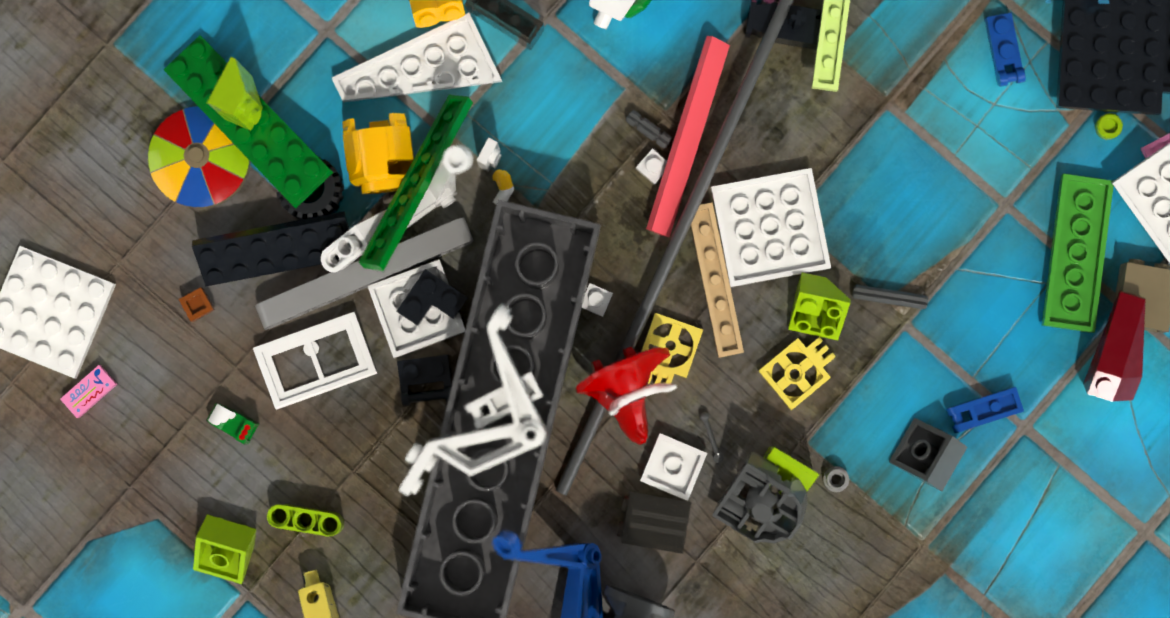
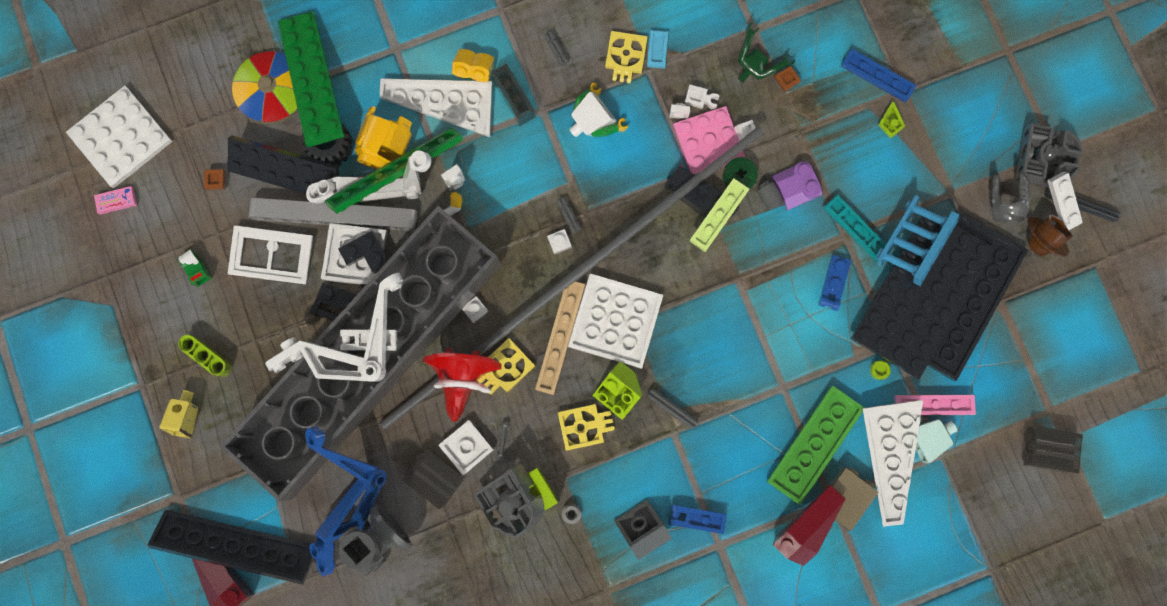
camera: 25 degrees right, 5 degrees down
(224, 549) = (141, 346): lime slope -> none
(236, 96) = (308, 54): lime slope -> none
(688, 136) = (591, 233): coral tile -> none

